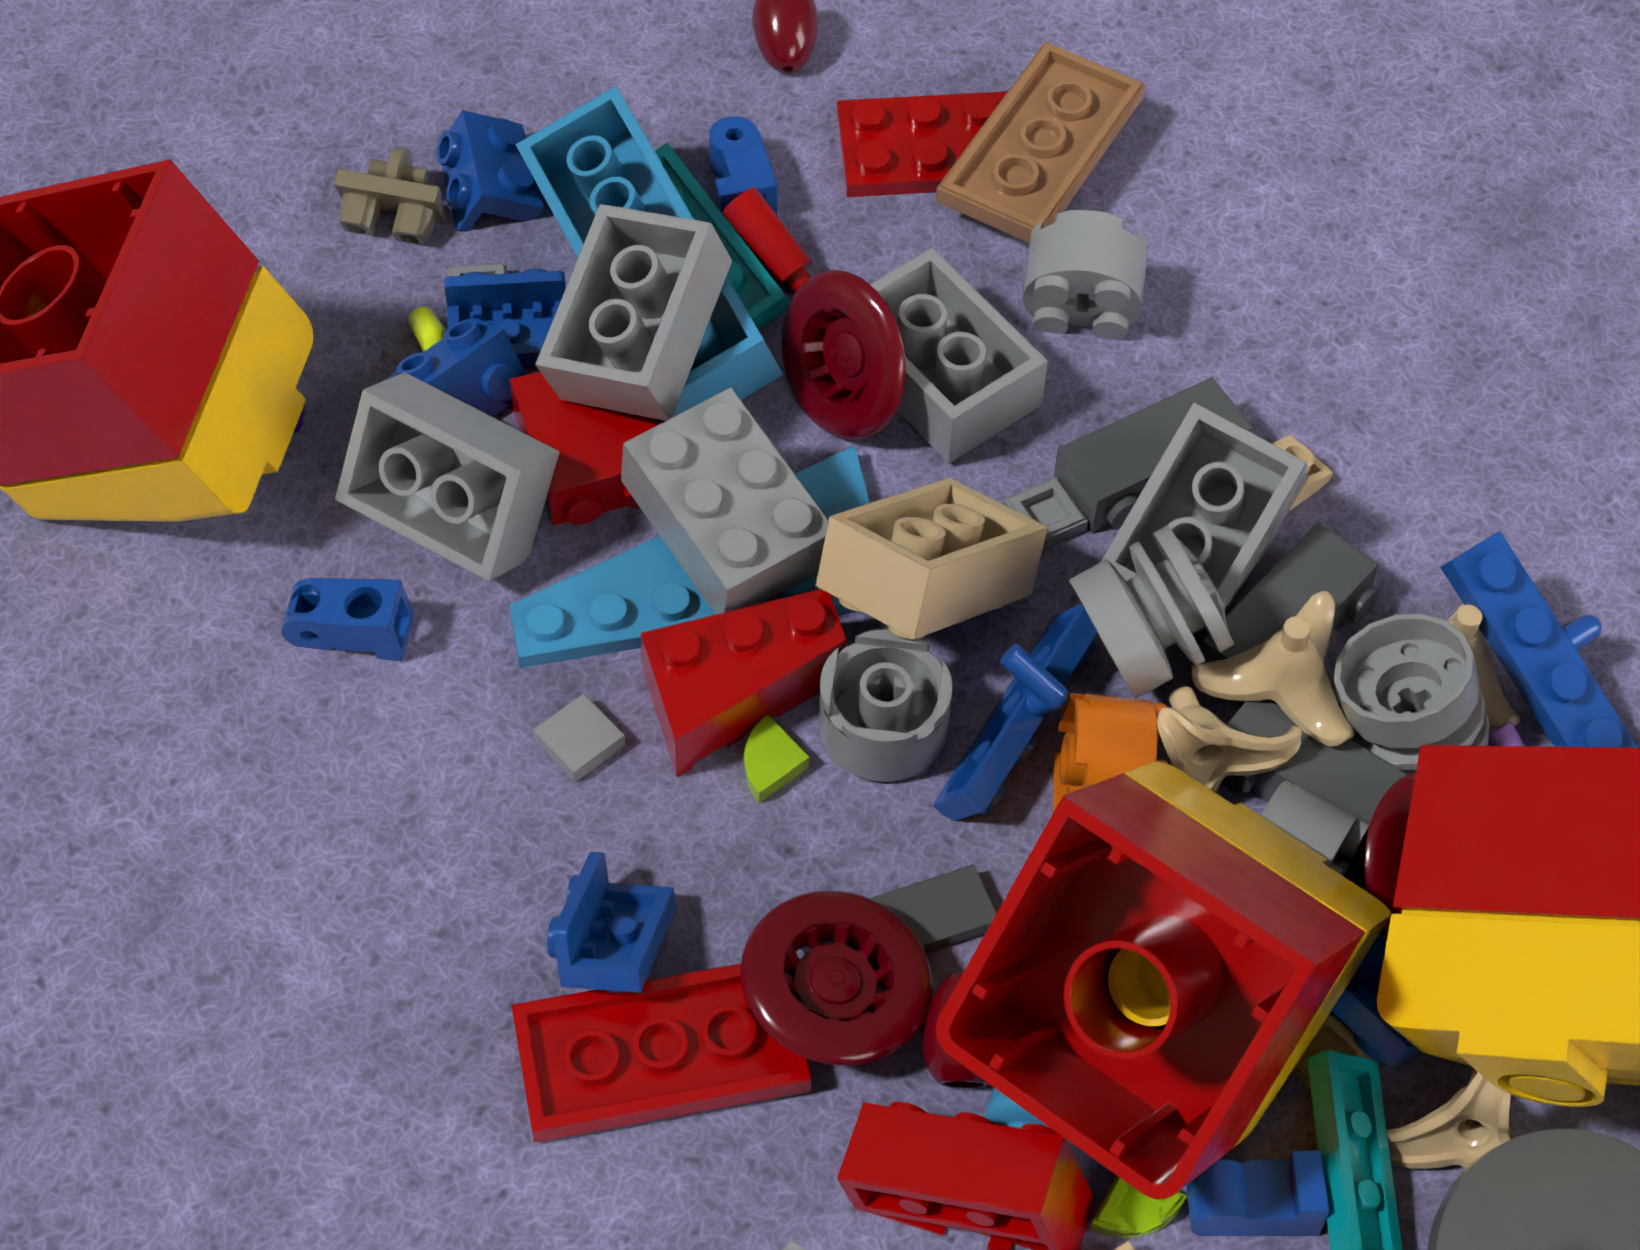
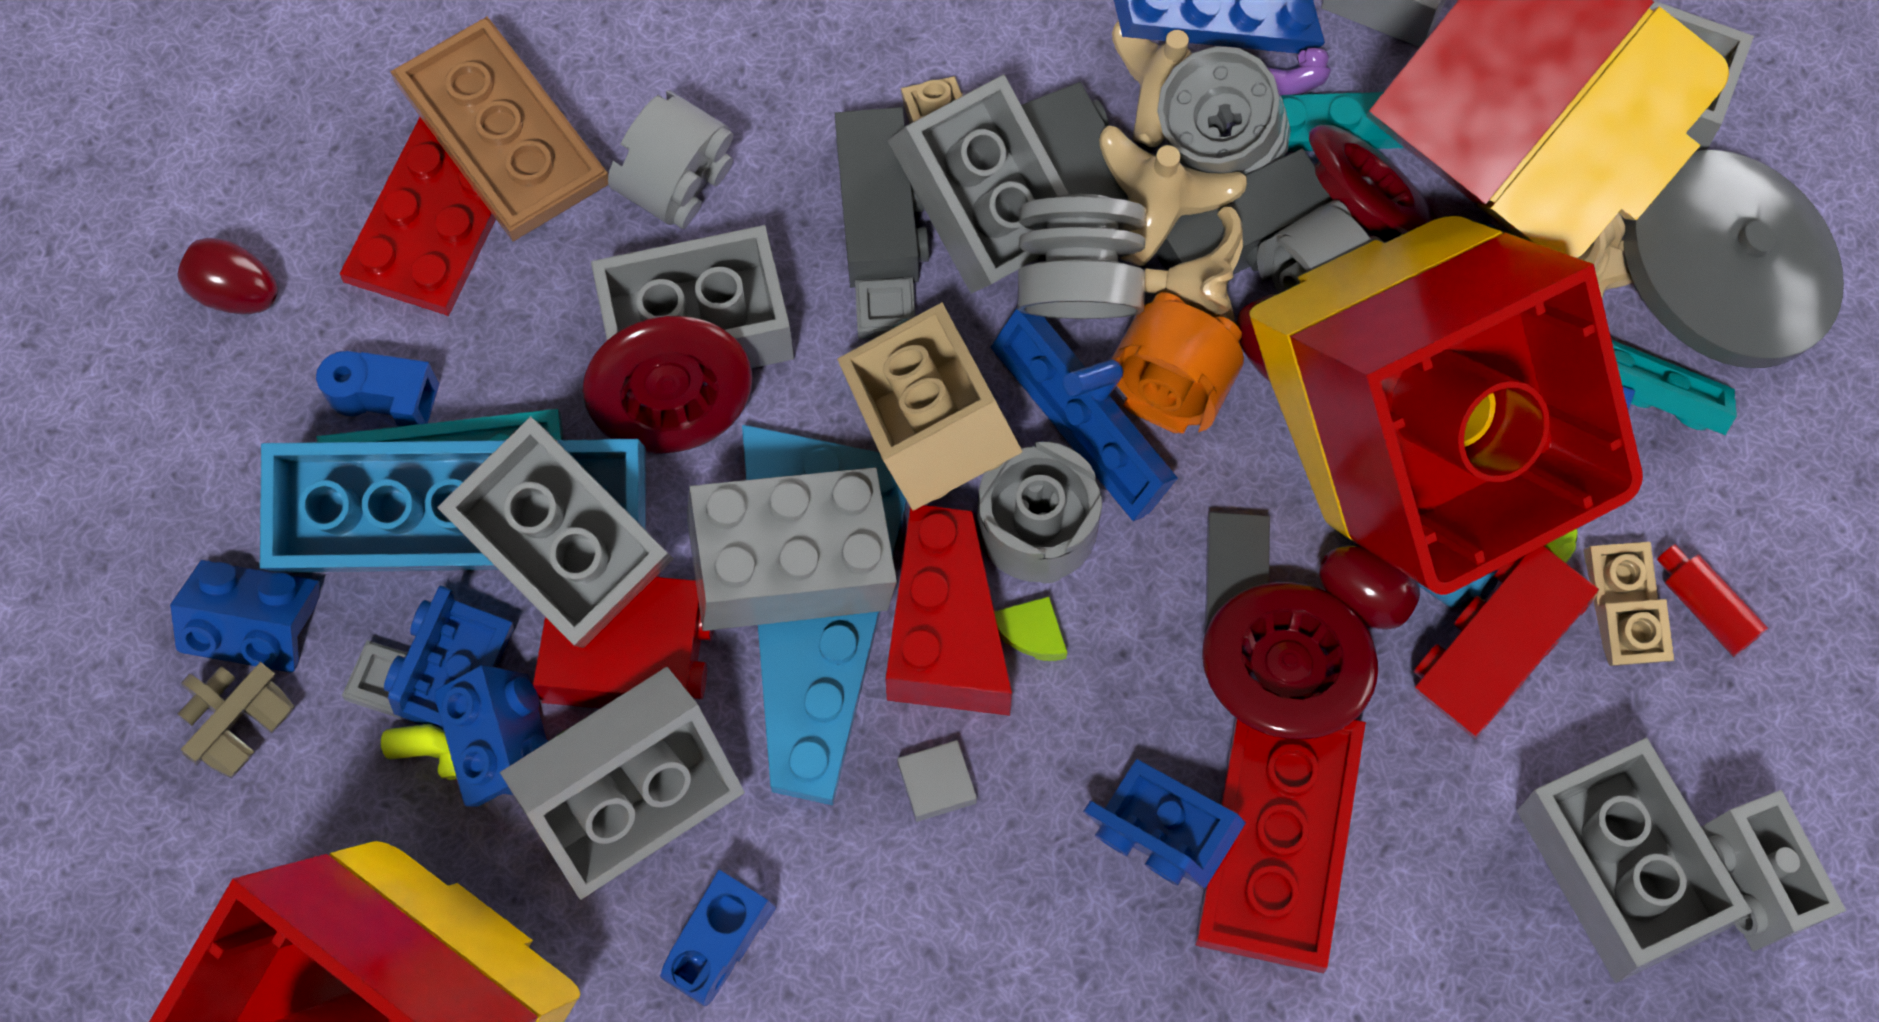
camera: 65 degrees left, 10 degrees up
(768, 239) = (480, 396): red cylinder -> none

